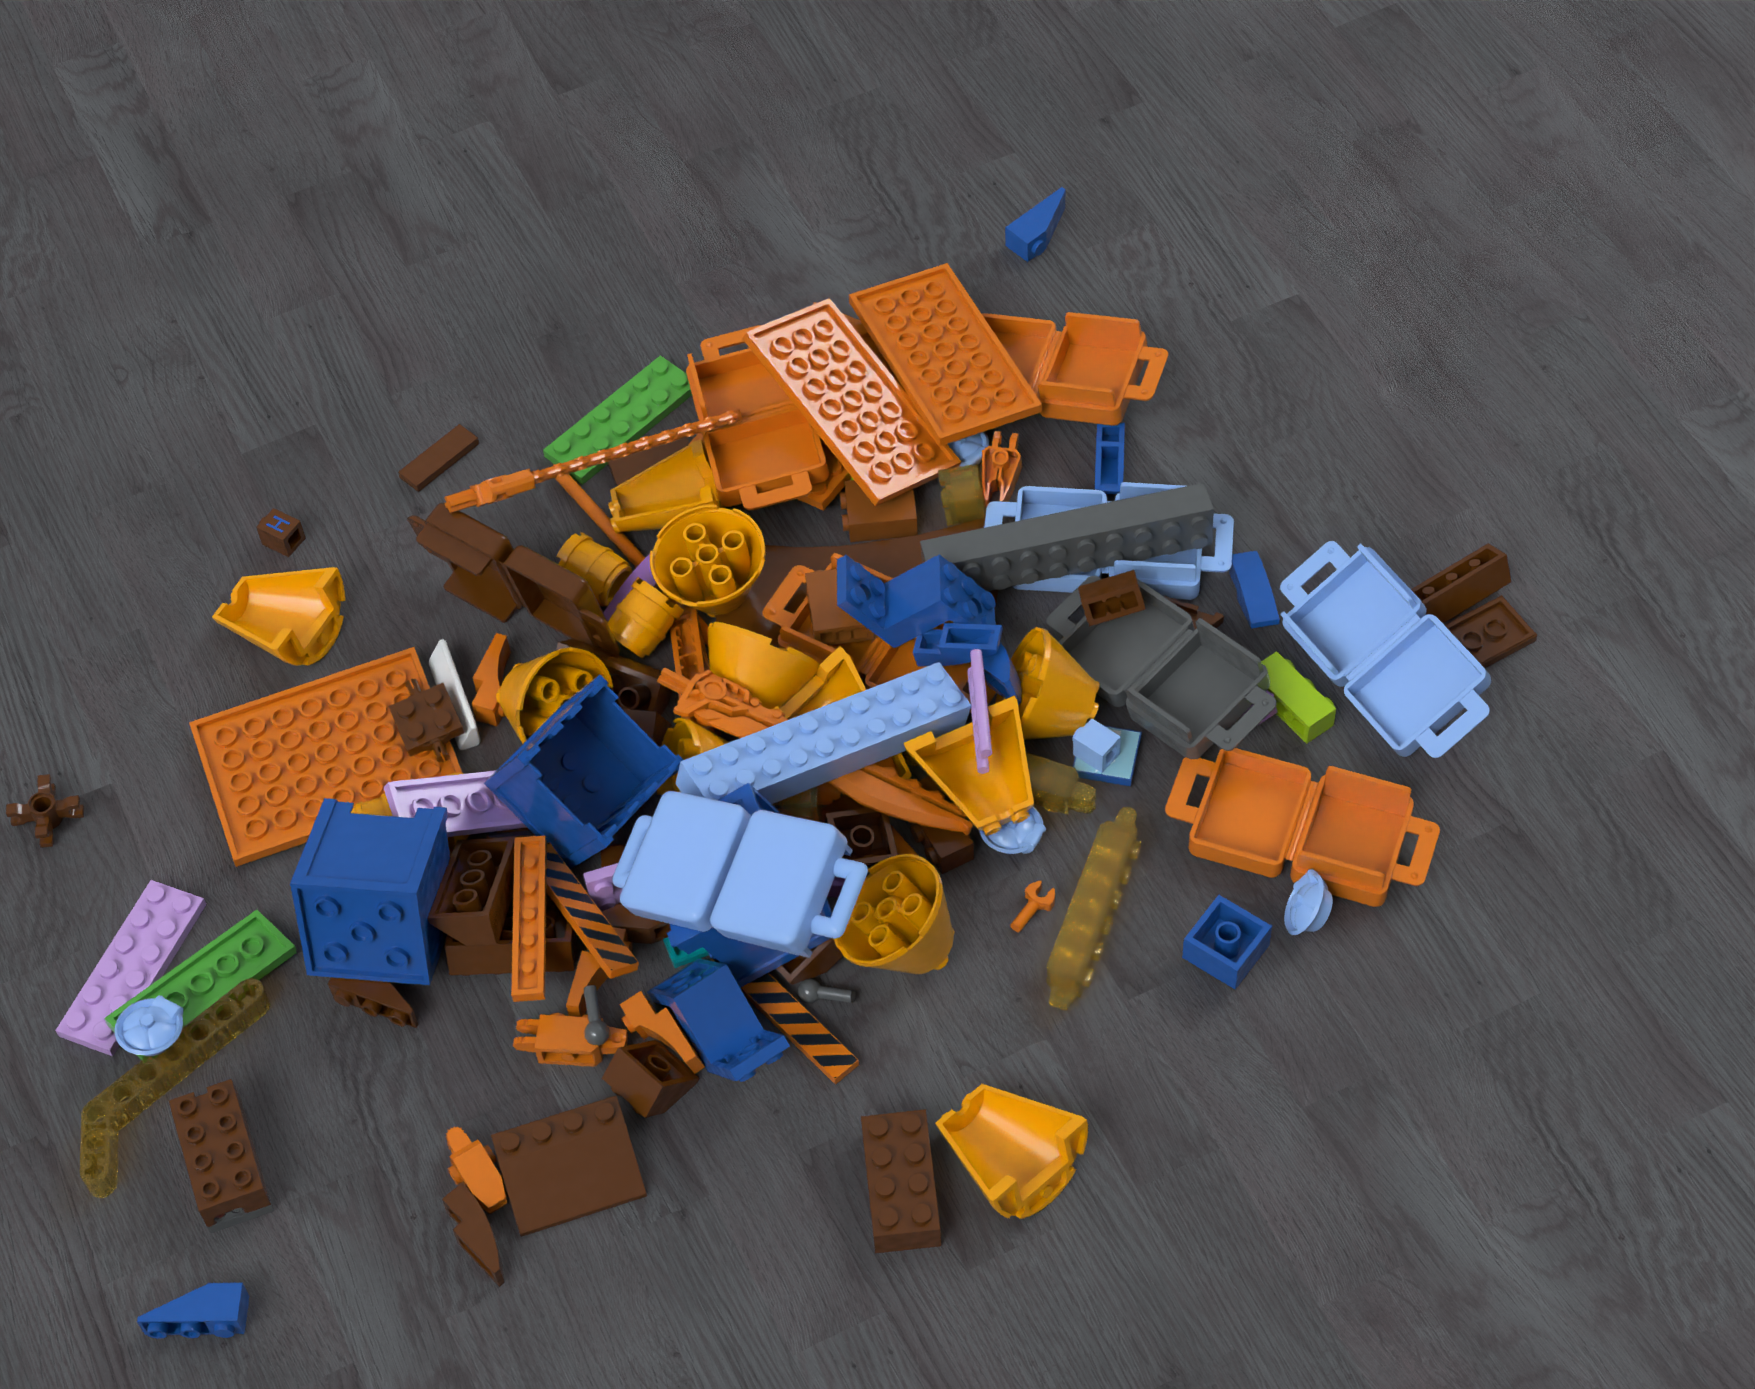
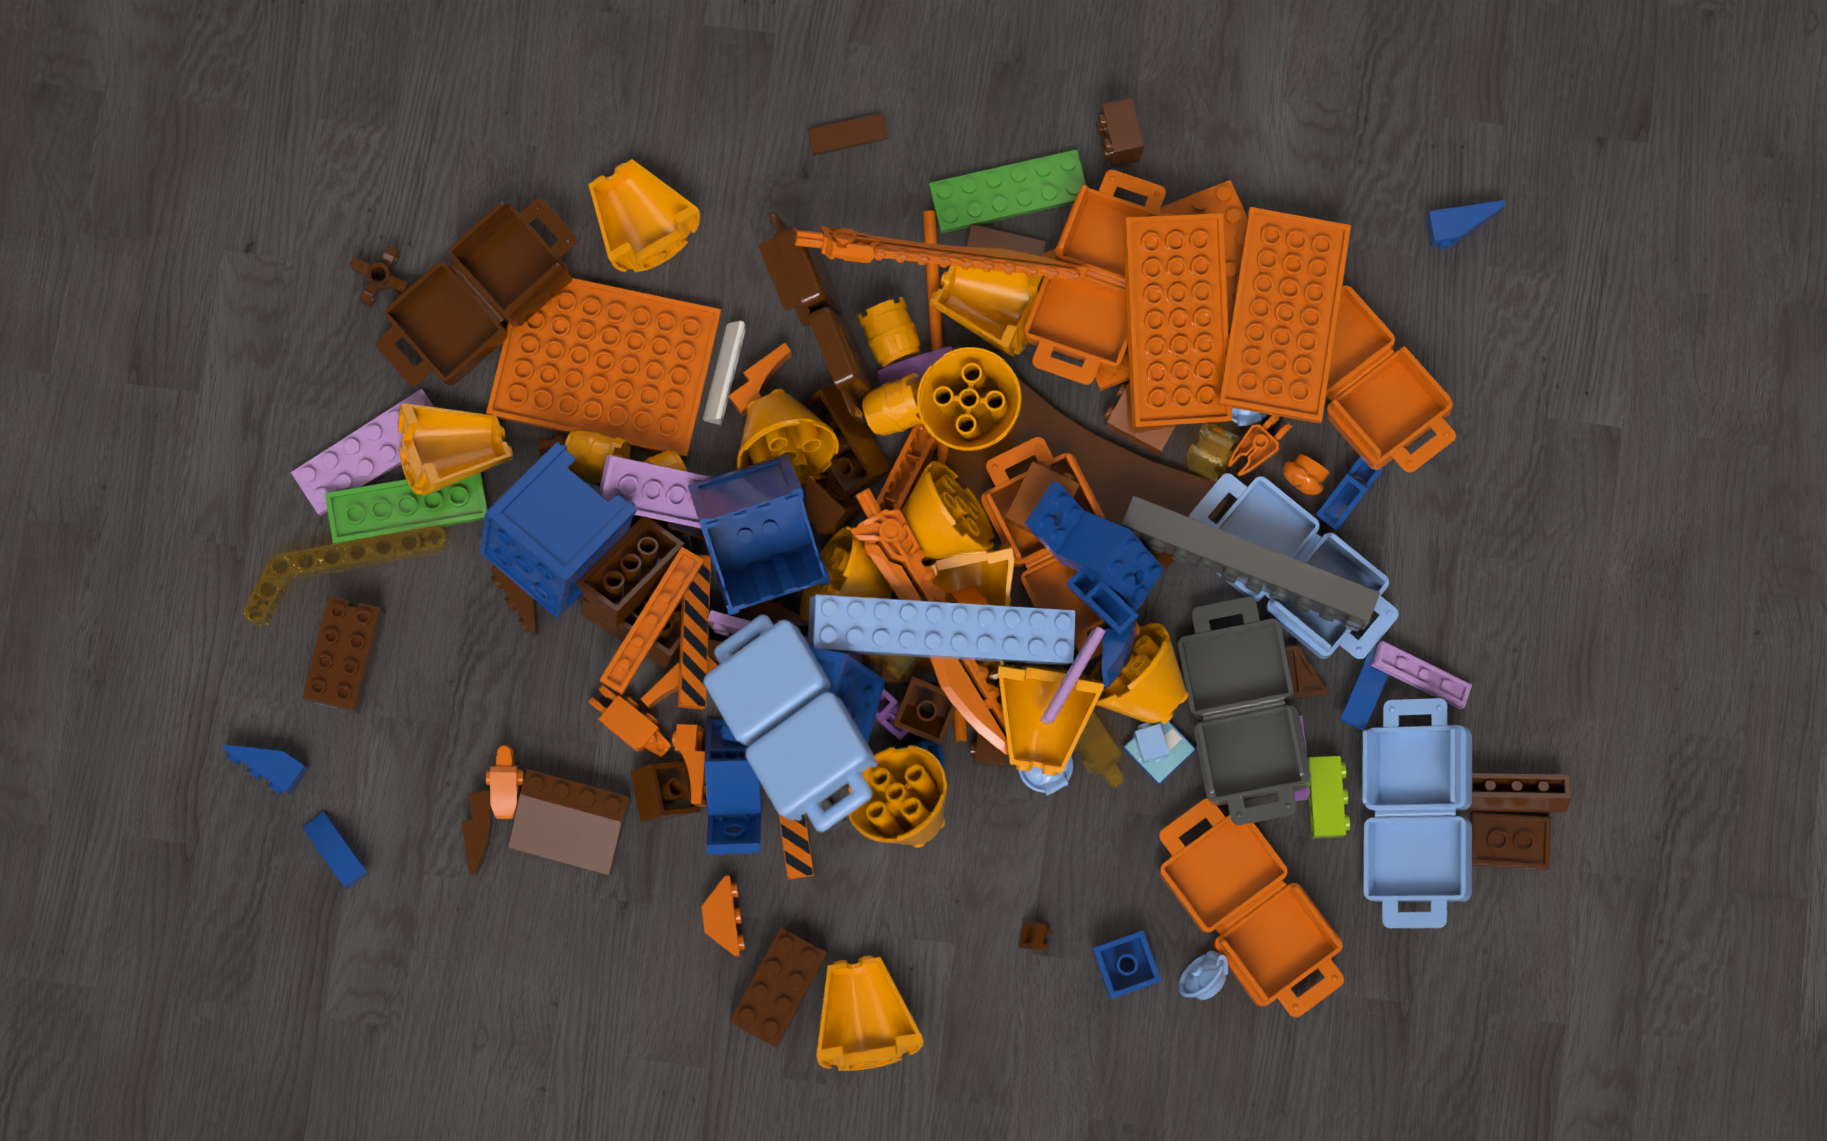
camera: 30 degrees right, 25 degrees up
(149, 1026) = (347, 527): light blue piece -> none
(155, 784) = (496, 275): none -> reddish brown piece
(208, 903) = (447, 446): none -> light orange cone
(280, 532) = (686, 130): reddish brown brick -> none
(332, 1350) = (335, 850): none -> blue slope
(426, 720) = (689, 386): reddish brown plate -> none
(596, 1031) = (647, 735): dark grey bar -> none
(689, 314) = (1121, 132): none -> reddish brown brick
(795, 1154) = (722, 917): none -> orange slope
(1034, 904) = (1017, 836): orange bar -> none
(1060, 465) = (1305, 474): none -> orange piece
(1091, 909) = (1054, 870): clear yellow hinge -> none
(1111, 598) = (1247, 632): reddish brown brick -> none
(1117, 976) = (1033, 936): none -> reddish brown tile
(1280, 551) = (1421, 675): none -> lavender tile

